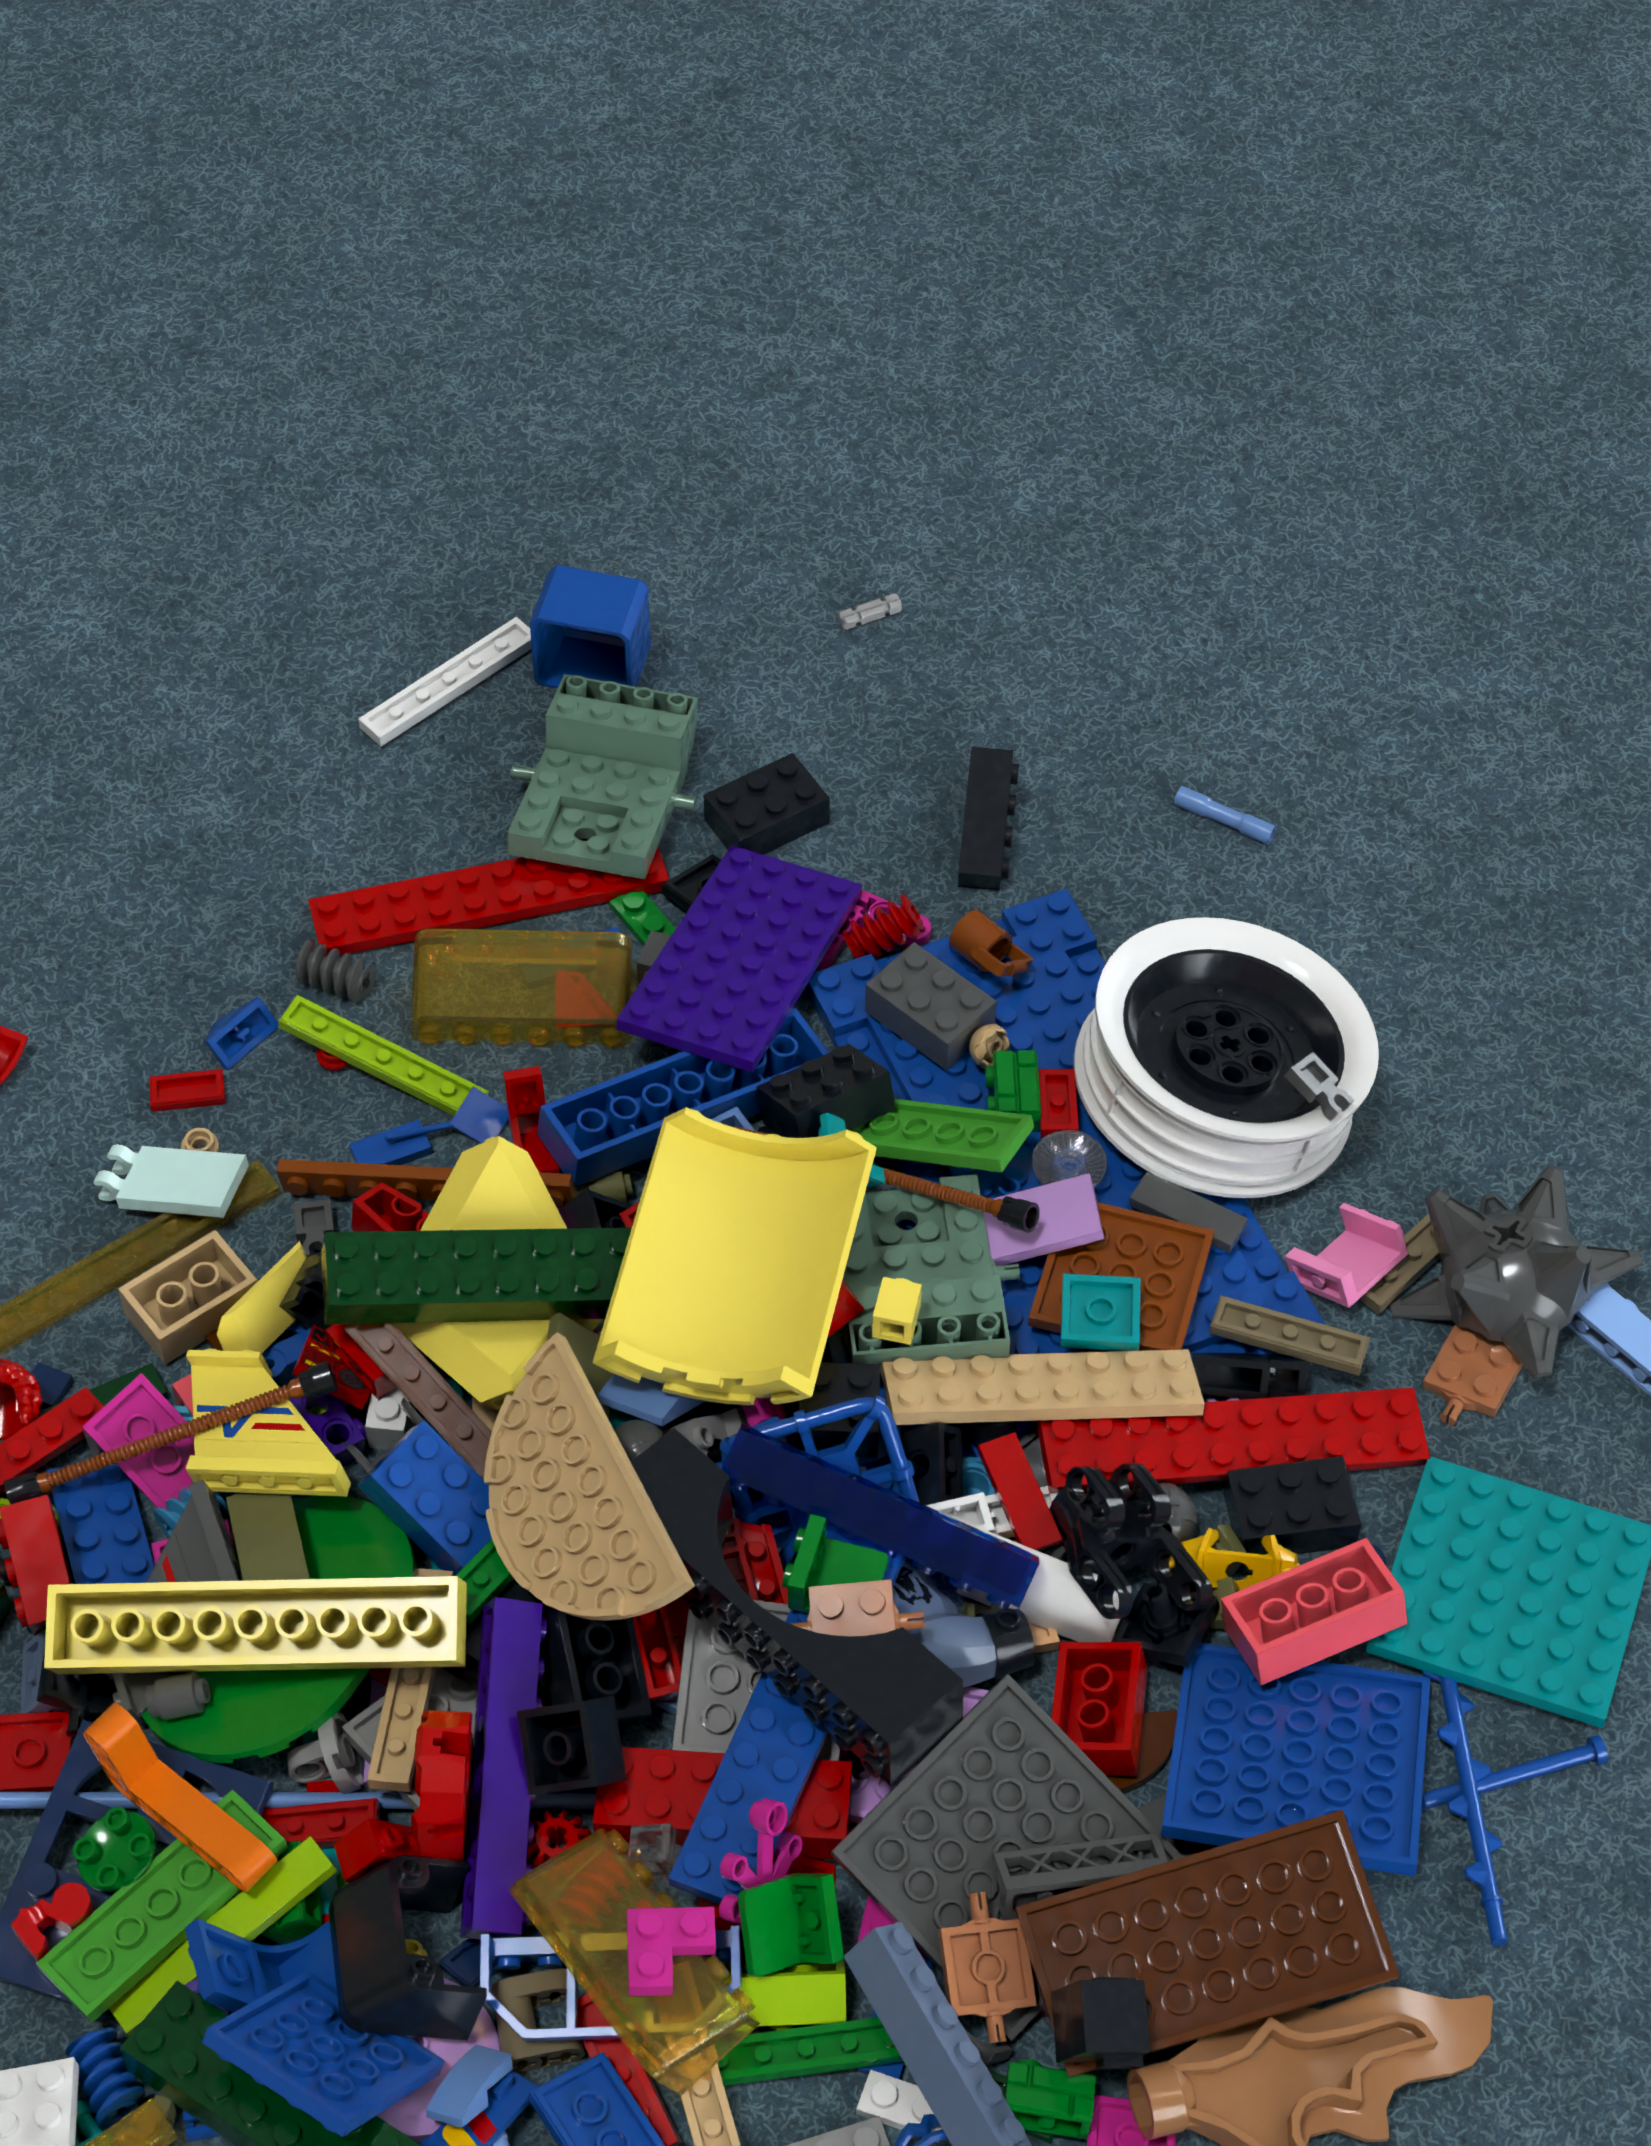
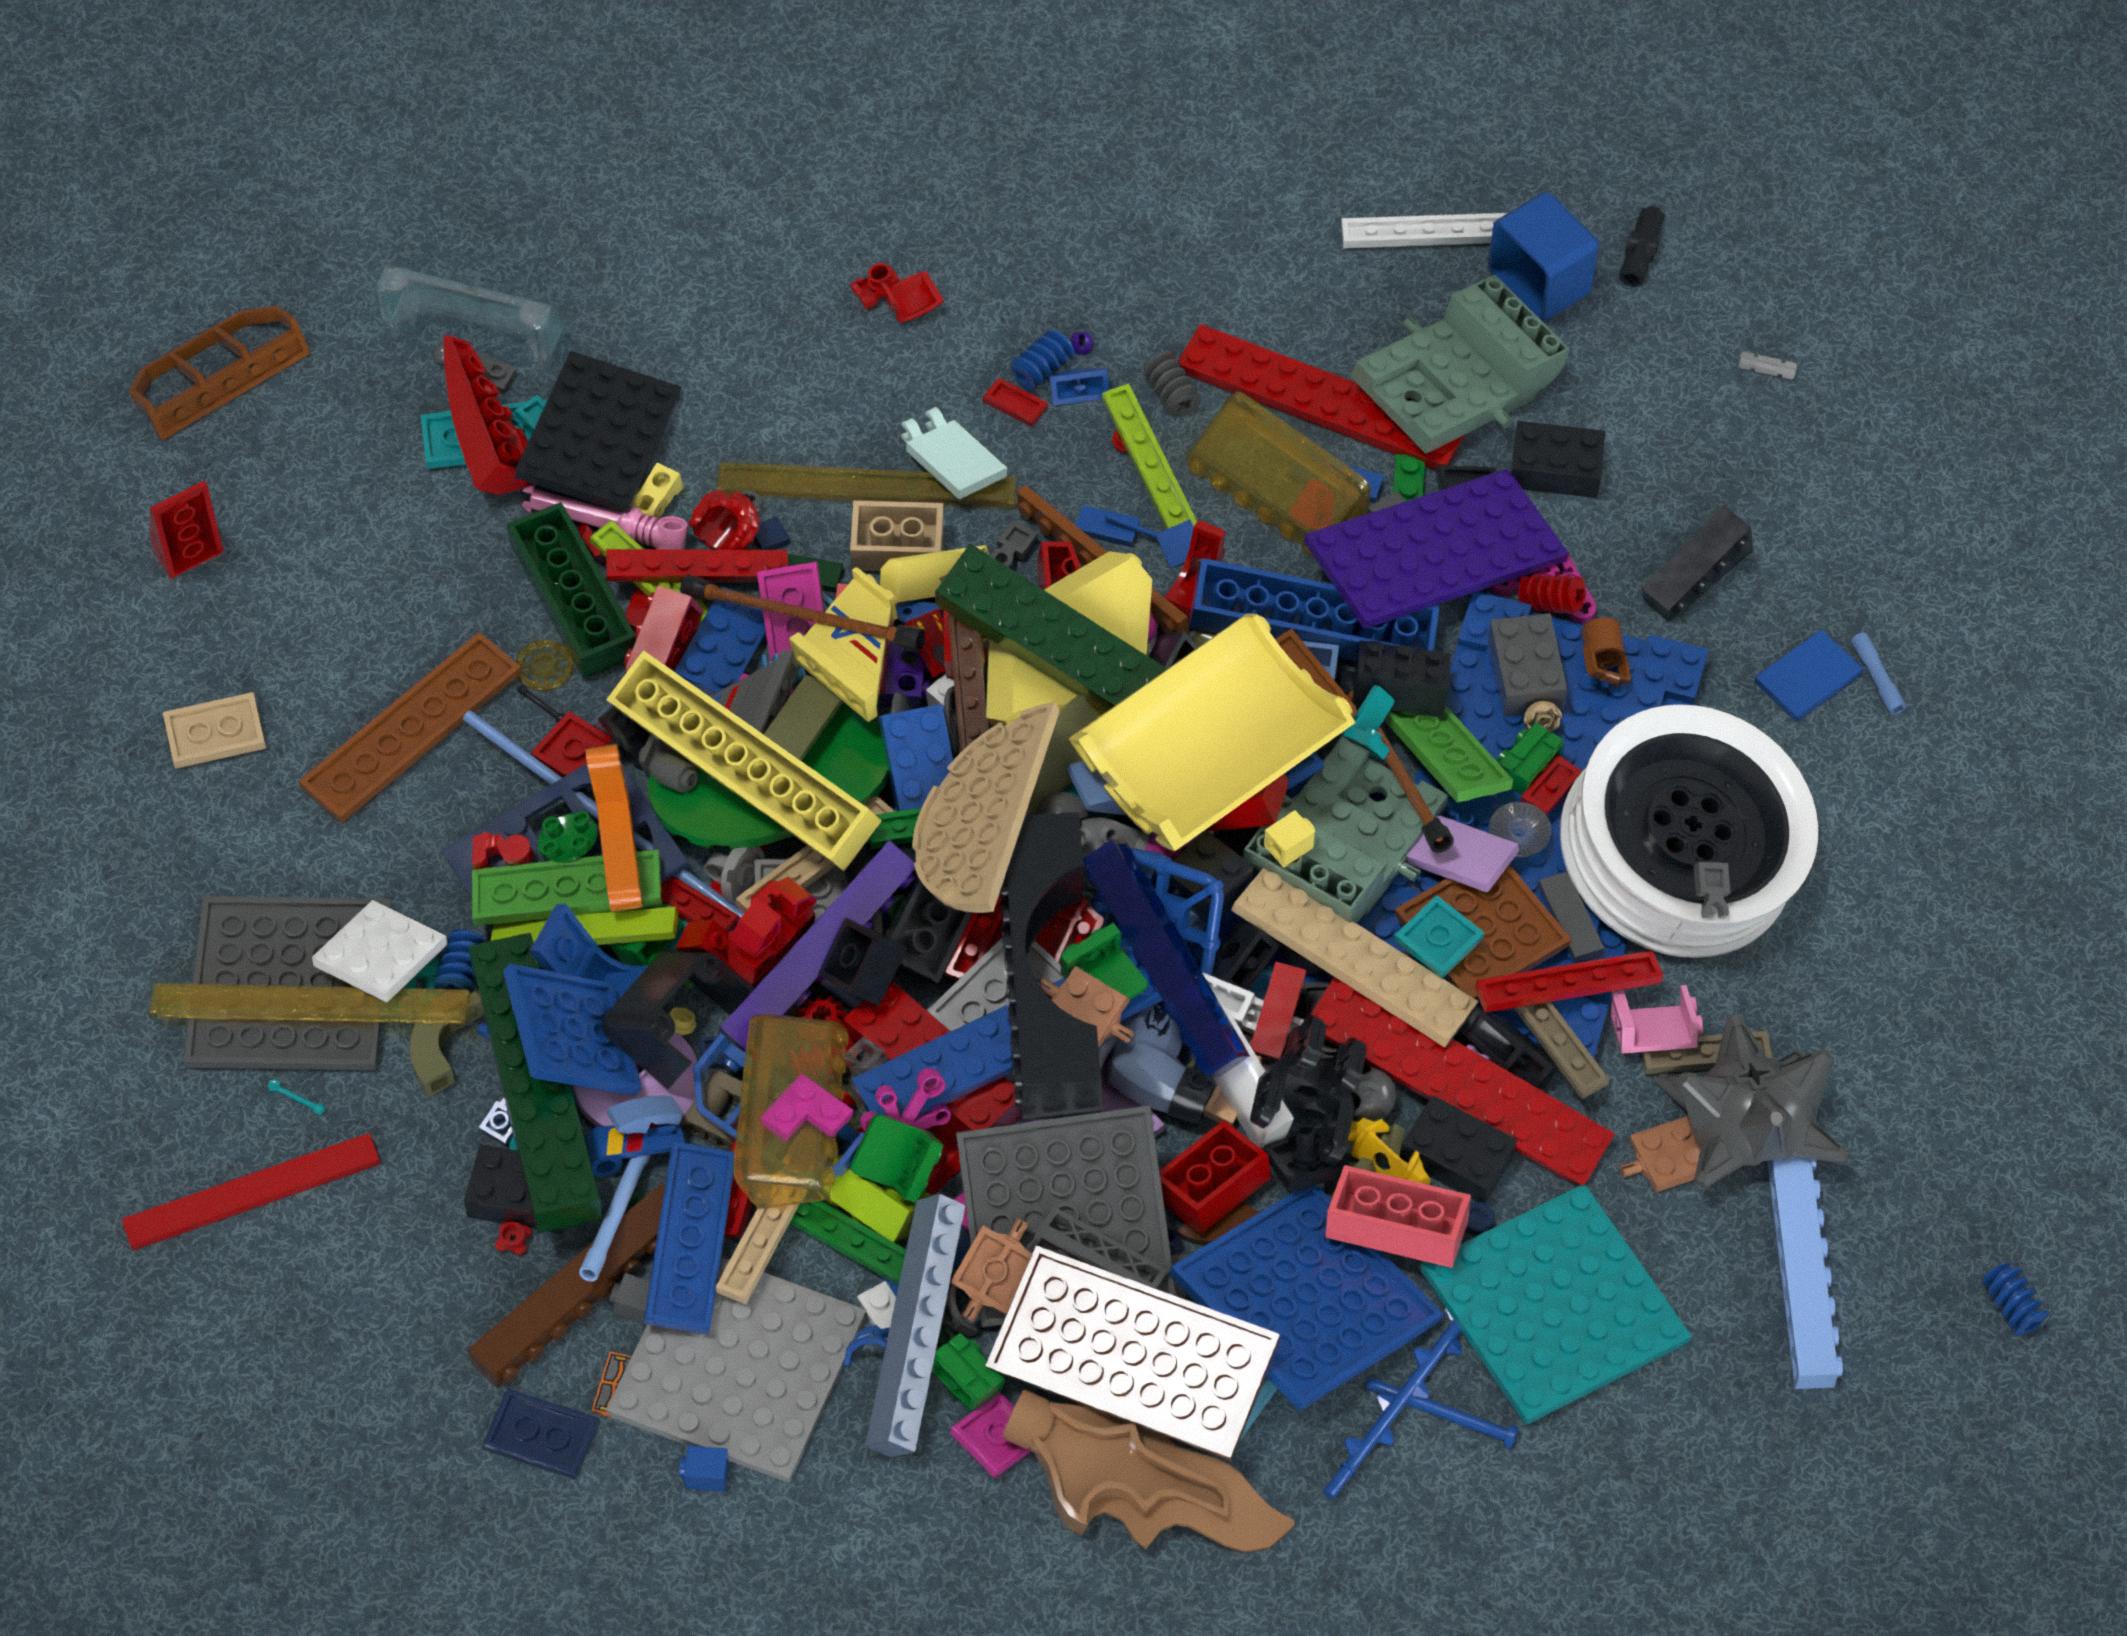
camera: 40 degrees right, 5 degrees up
(181, 1030) = (1041, 358): none -> blue piece
(198, 994) = (1082, 350): none -> dark purple hinge
(198, 1137) = (993, 437): tan plate -> none
(661, 576) = (1642, 246): none -> black piece
(1101, 2022) = (1024, 1346): black plate -> none
(1167, 857) = (1808, 675): none -> blue tile
(1250, 1272) = (1568, 981): none -> red plate

